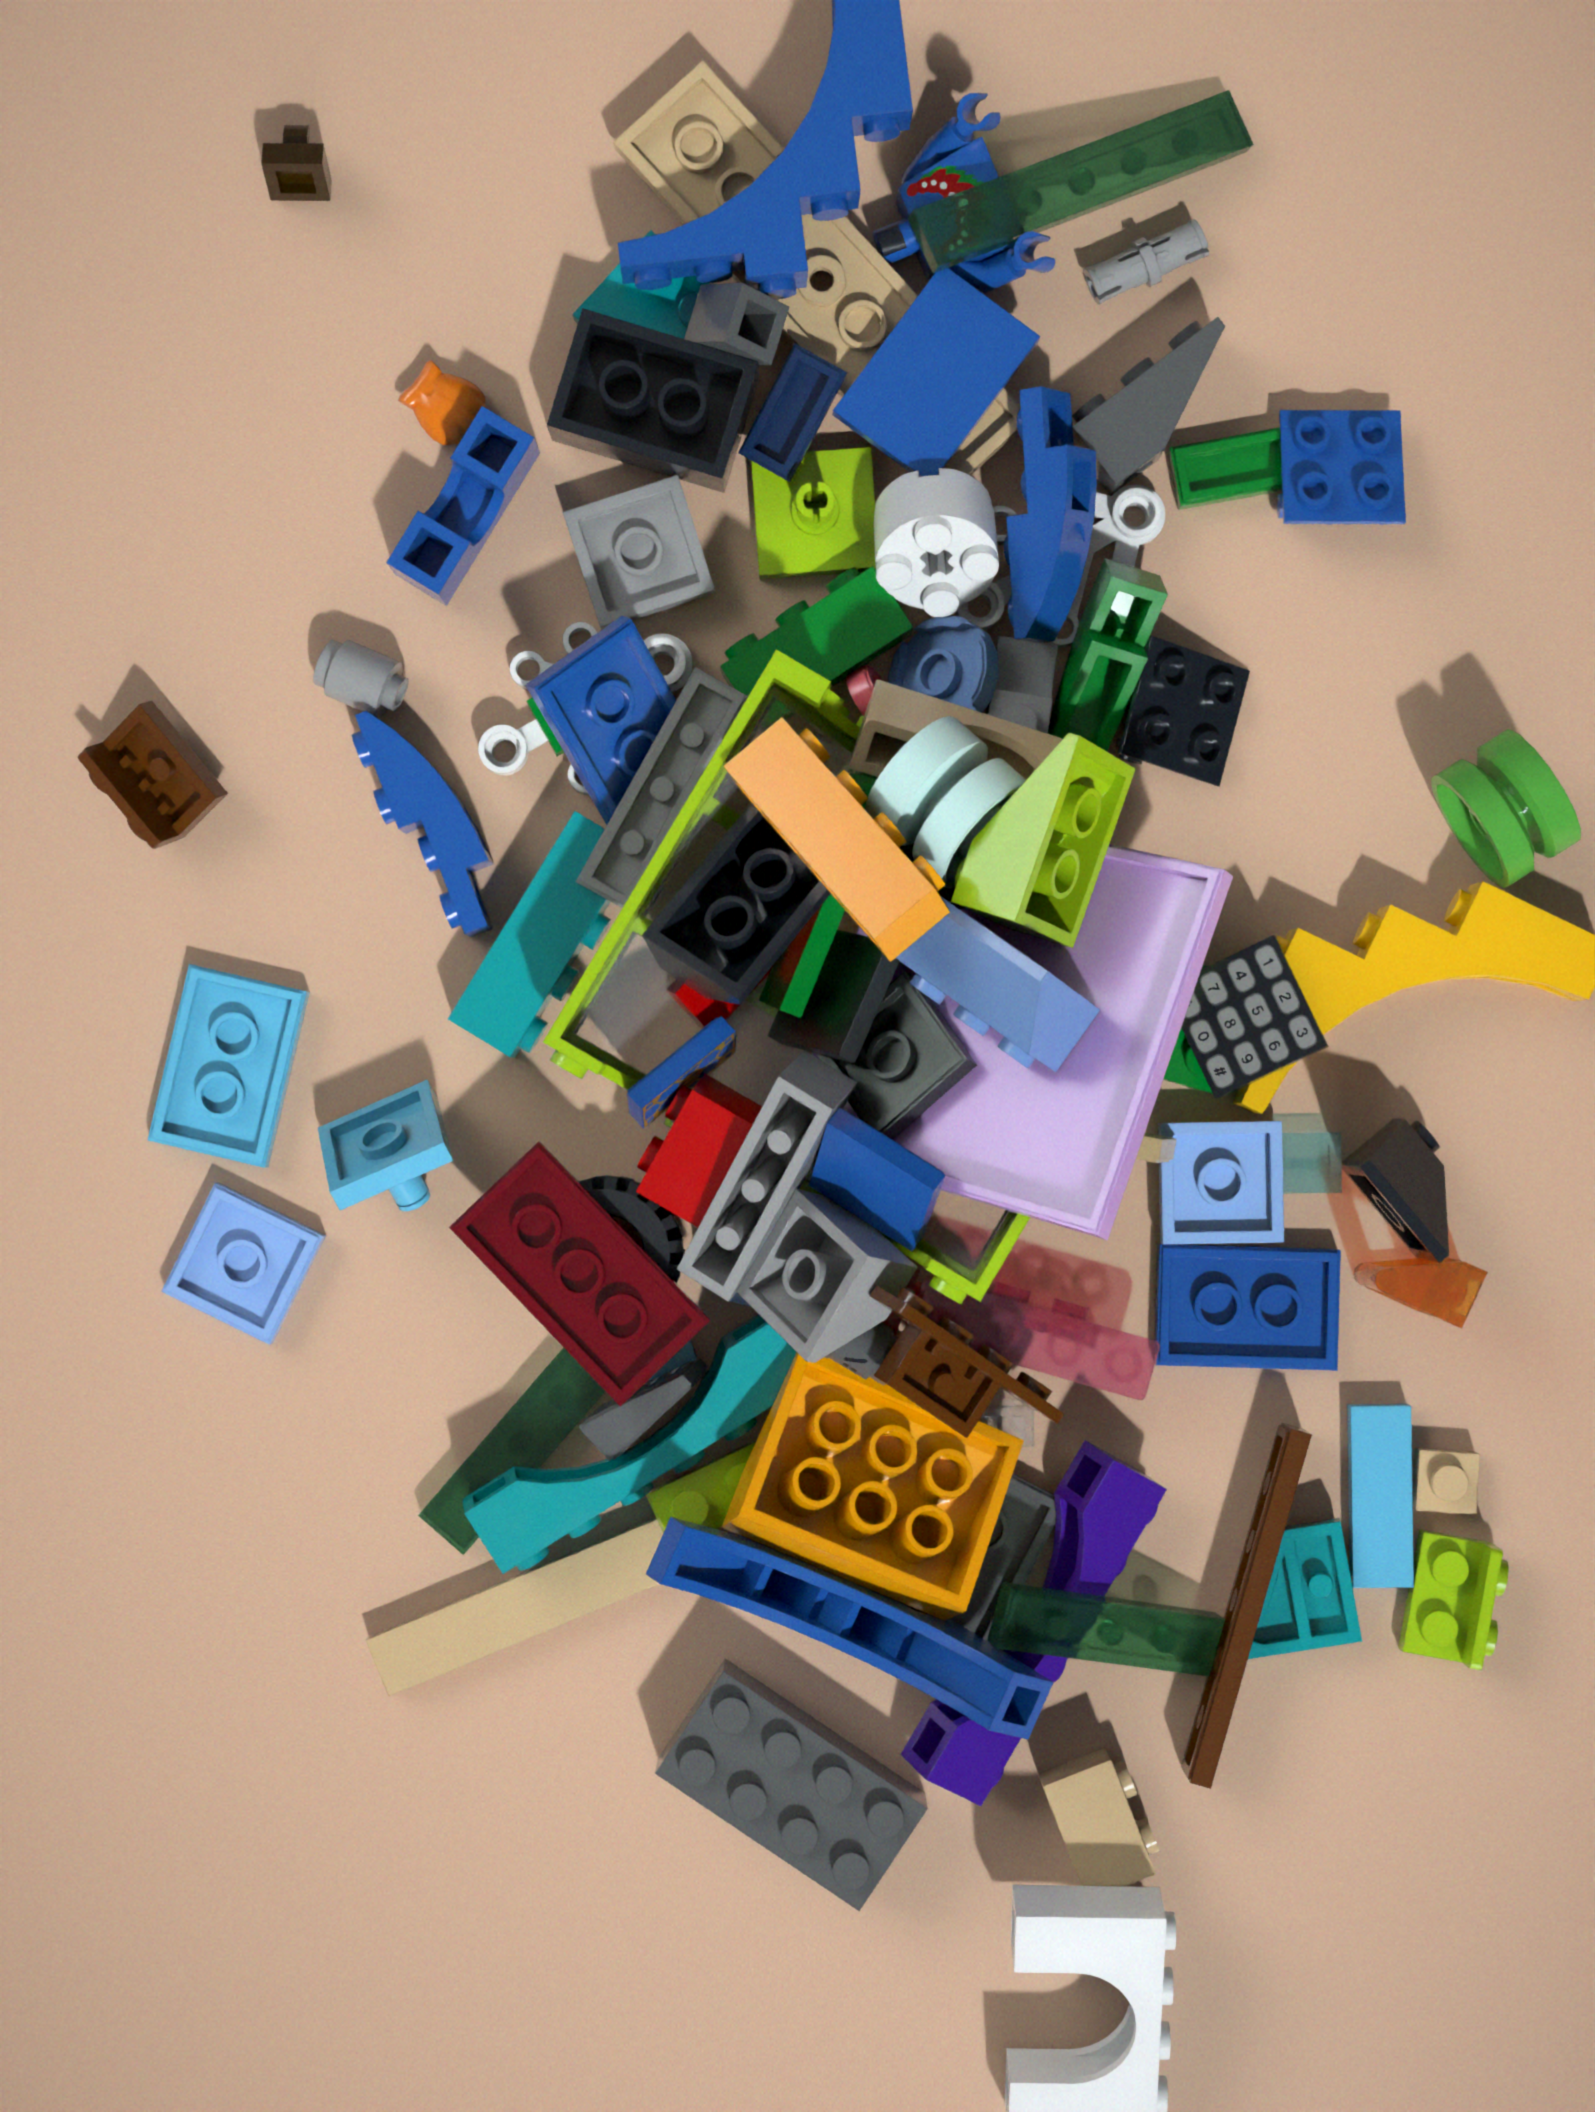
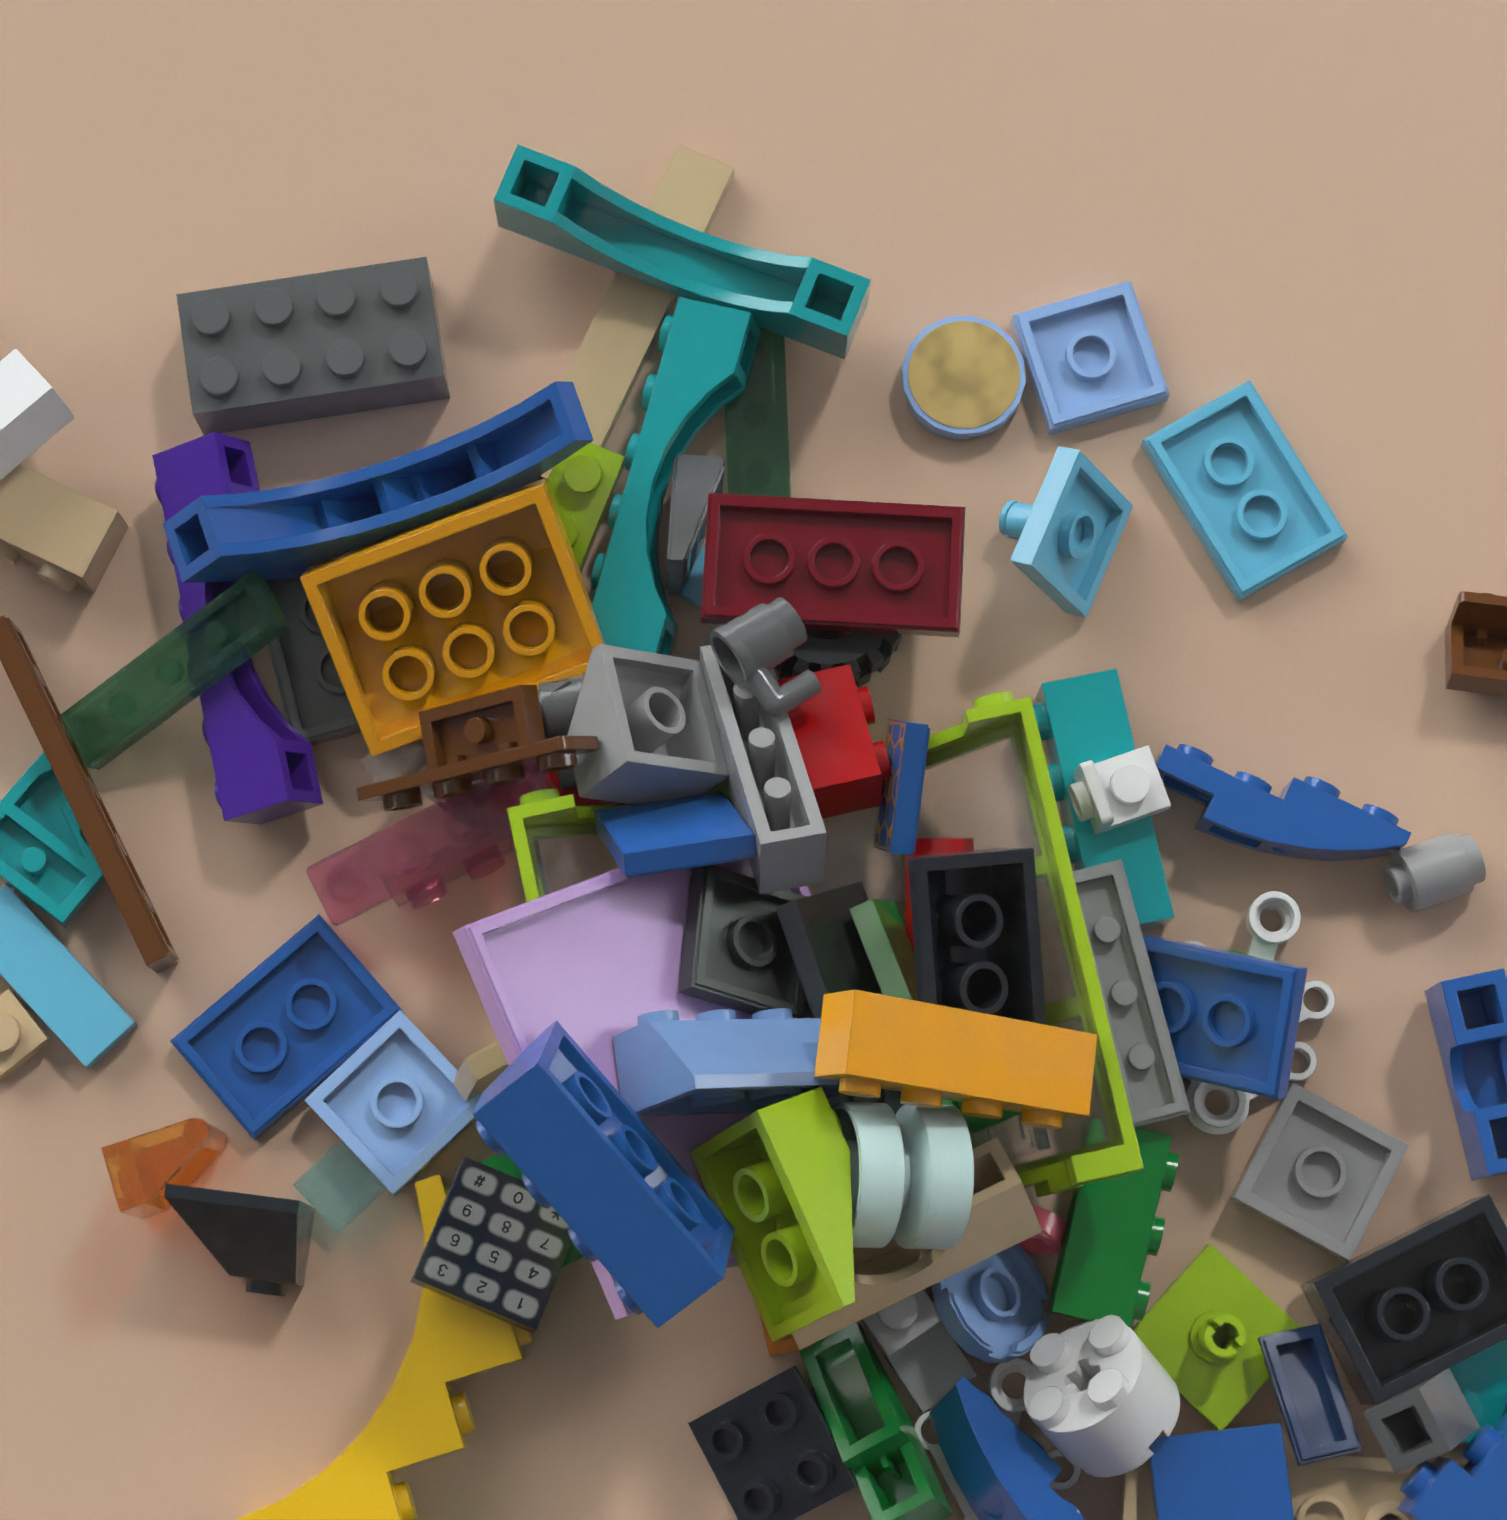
camera: 135 degrees right, 10 degrees down
(348, 1332) = (963, 377): none -> pearl gold tile
(493, 1651) = (591, 221): none -> teal arch
(531, 930) = (1118, 790): none -> white bracket
(690, 1260) = (758, 643): none -> dark grey piece
(1157, 973) = (605, 1176): none -> blue slope

